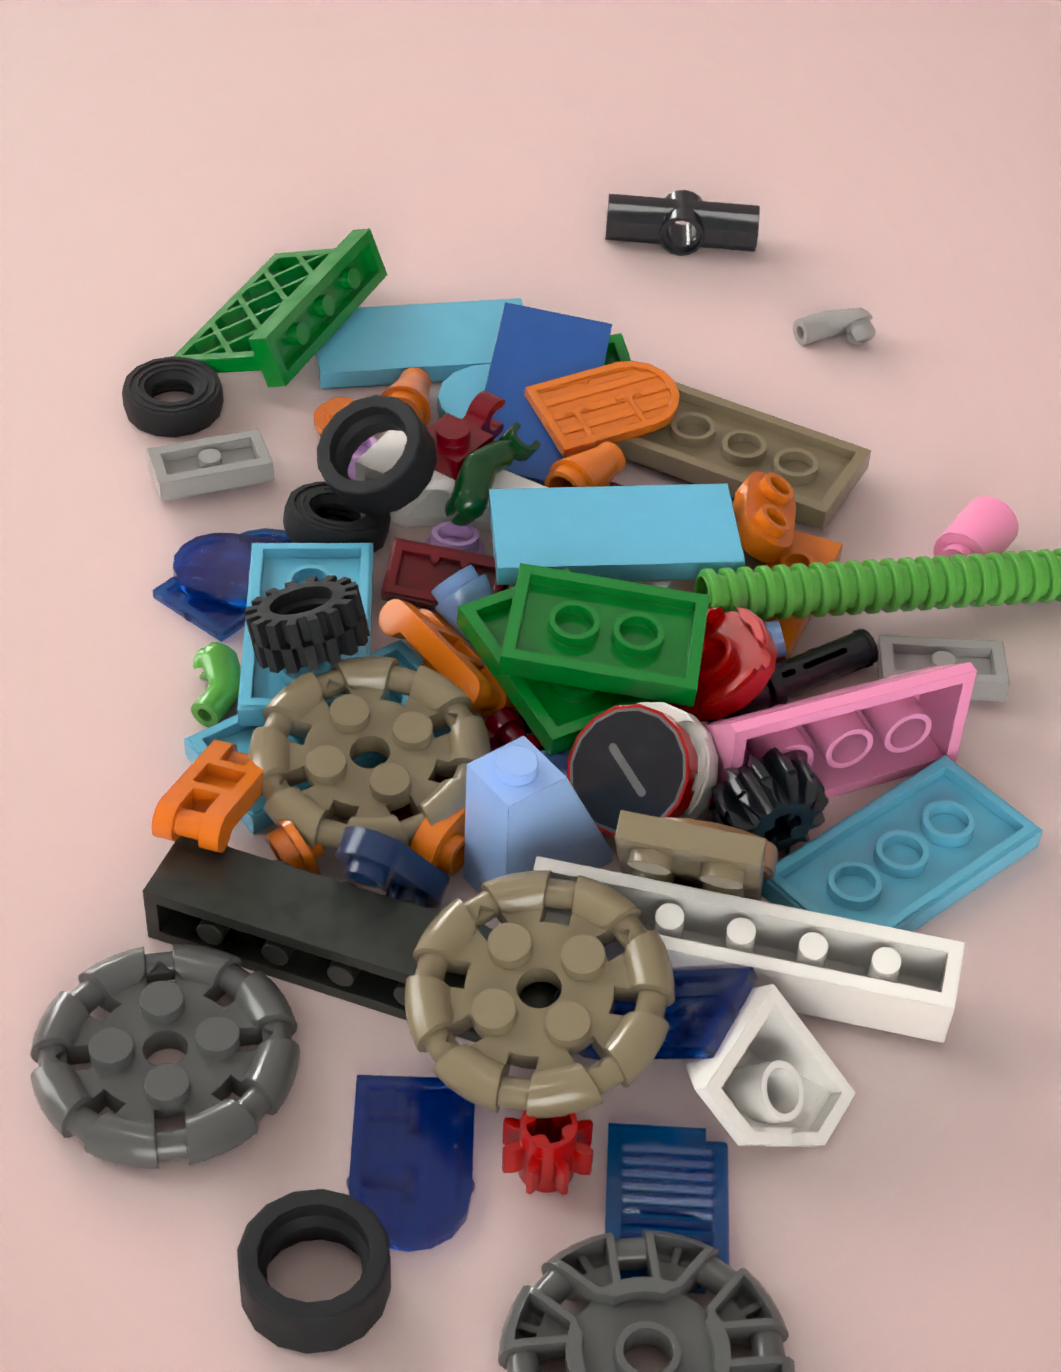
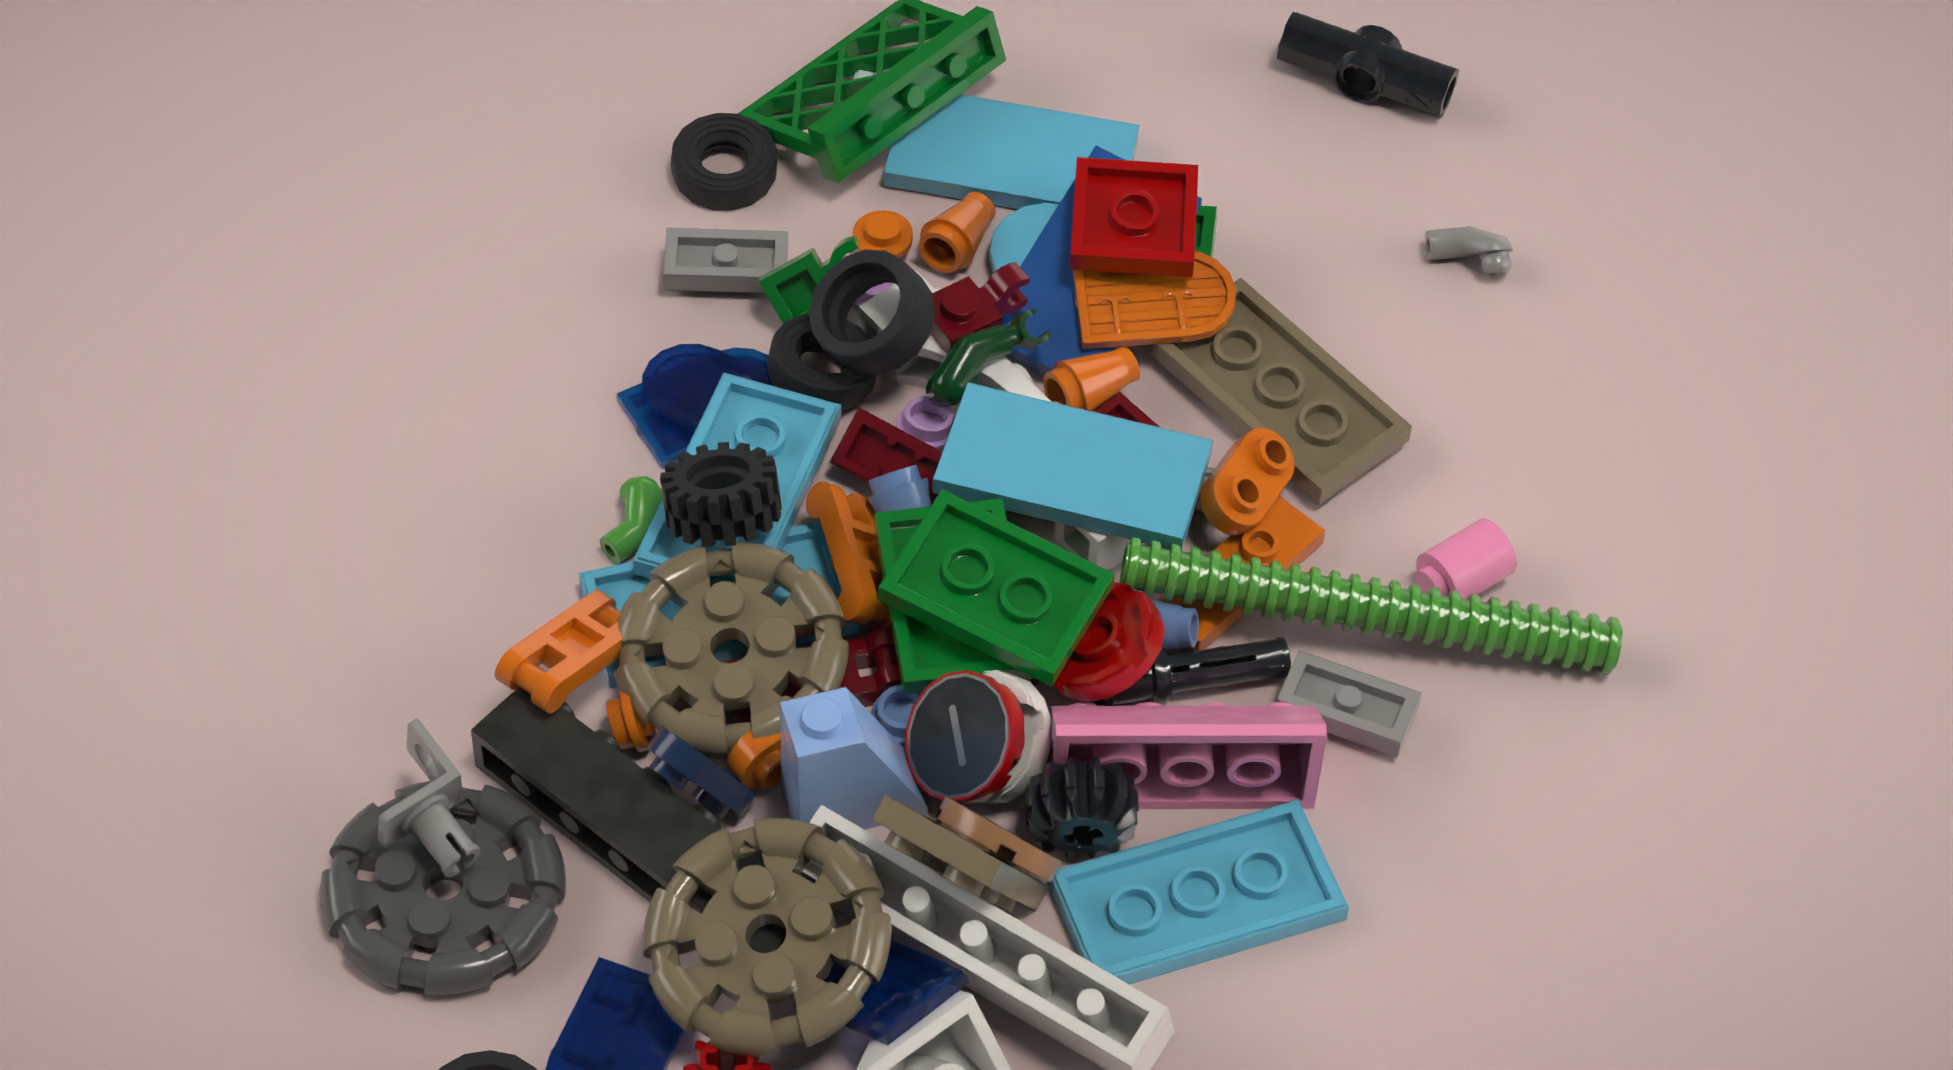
camera: 20 degrees right, 10 degrees up
(131, 973) = (427, 810): none -> light grey bracket
(294, 458) = (794, 282): none -> green plate
(568, 341) = (1134, 217): none -> red plate

